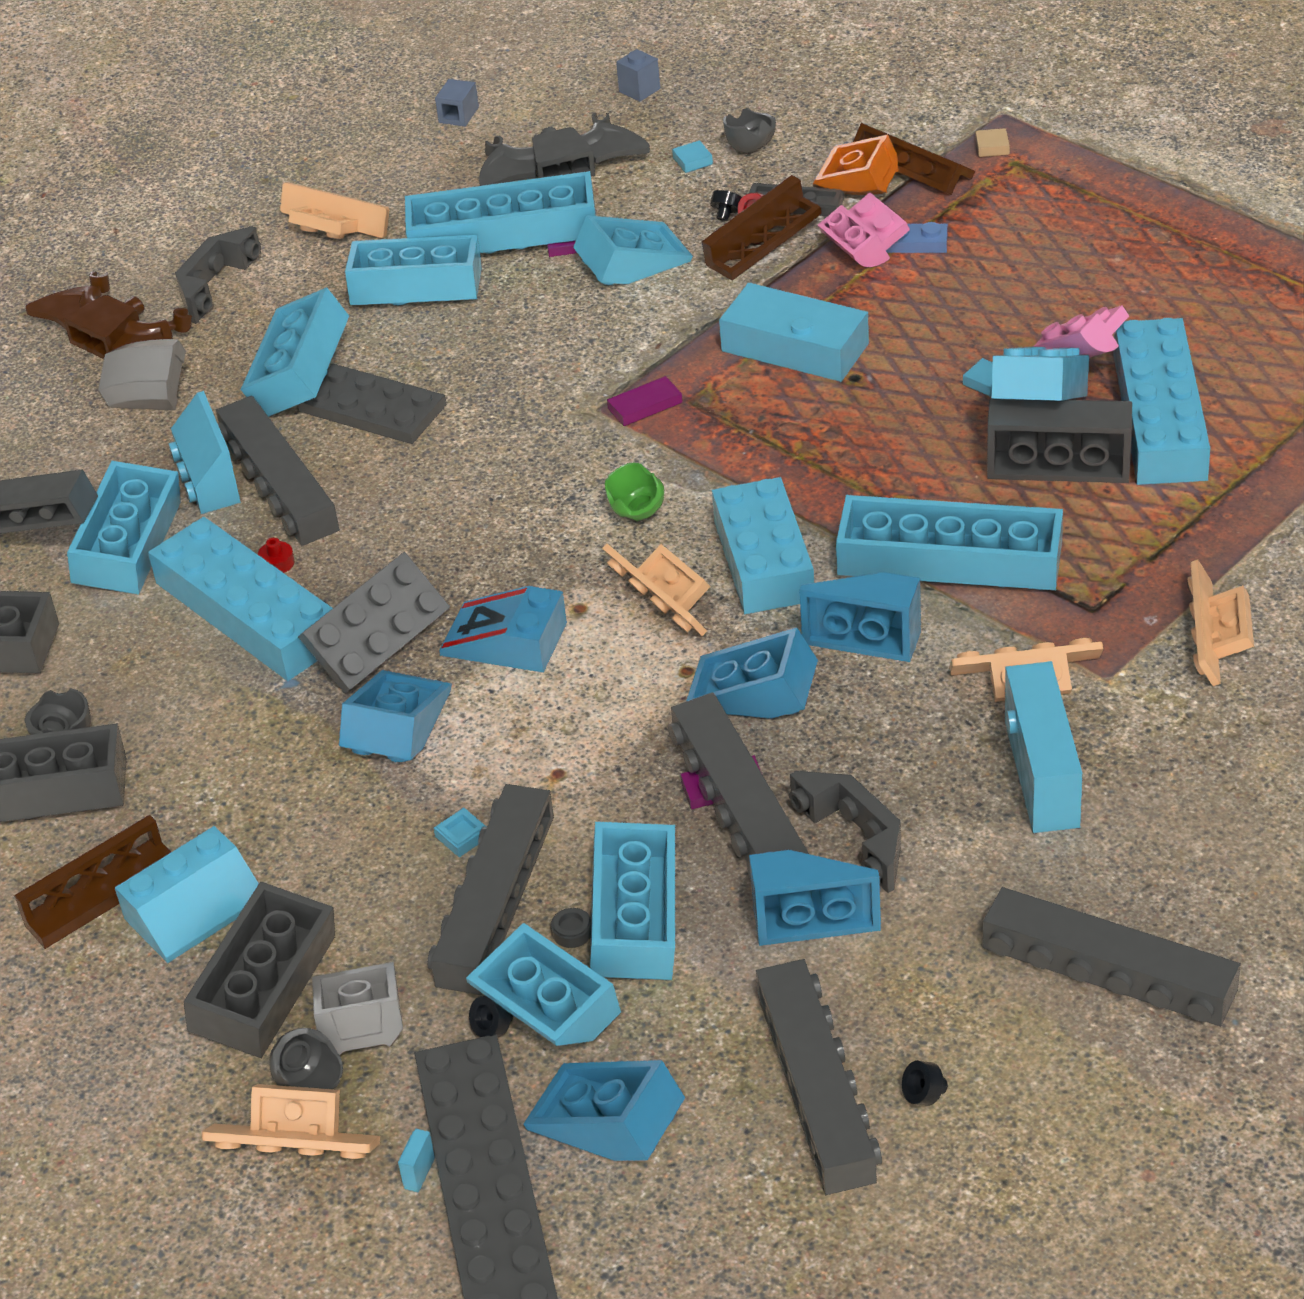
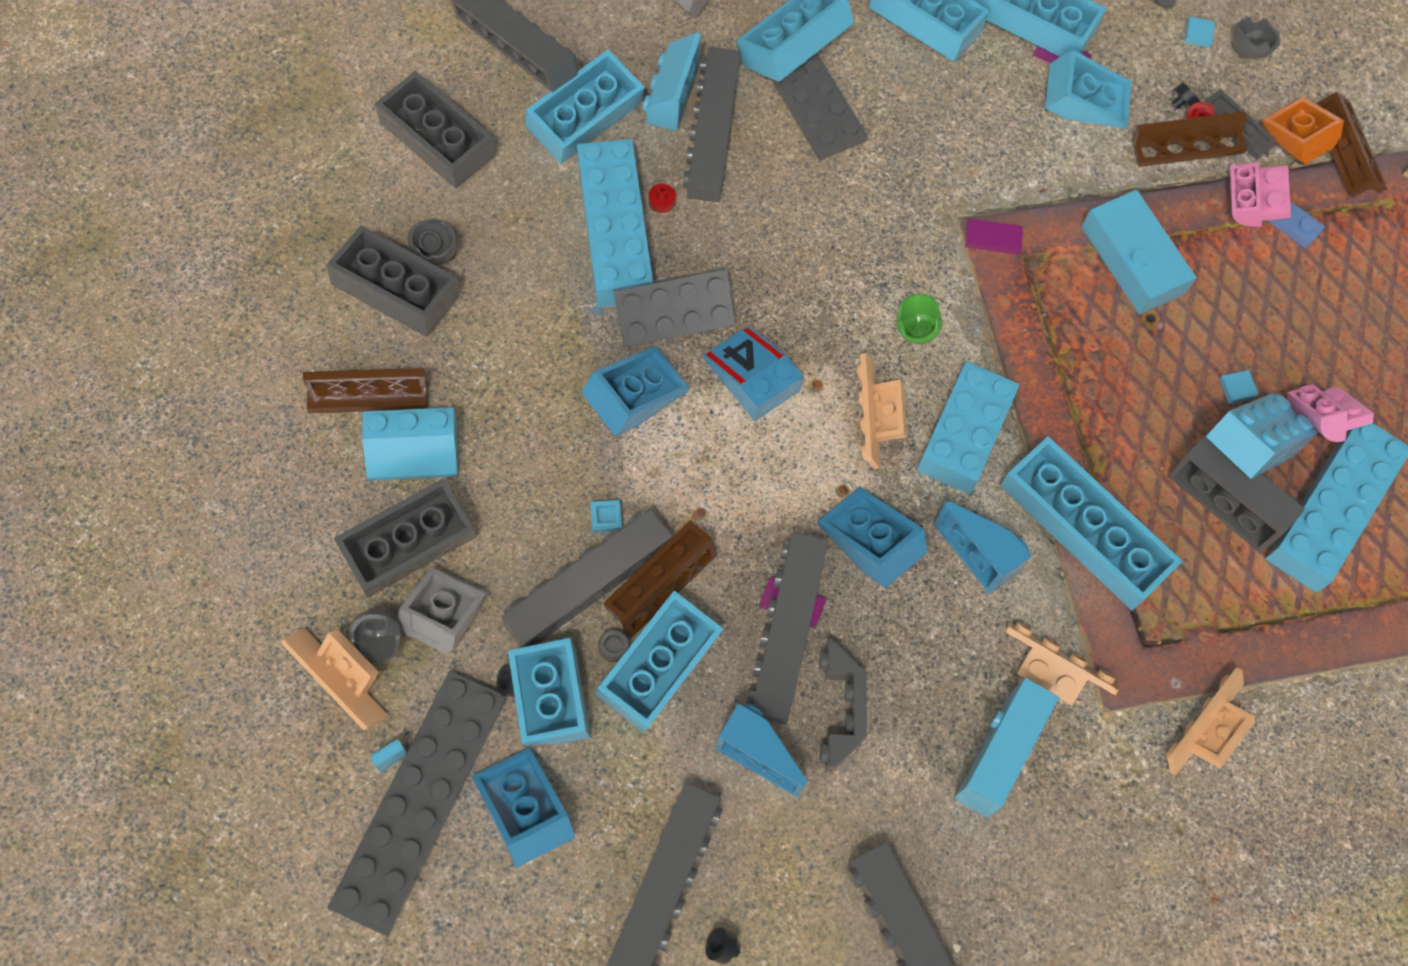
camera: 25 degrees right, 25 degrees up
(567, 835) = (661, 578): none -> reddish brown fence

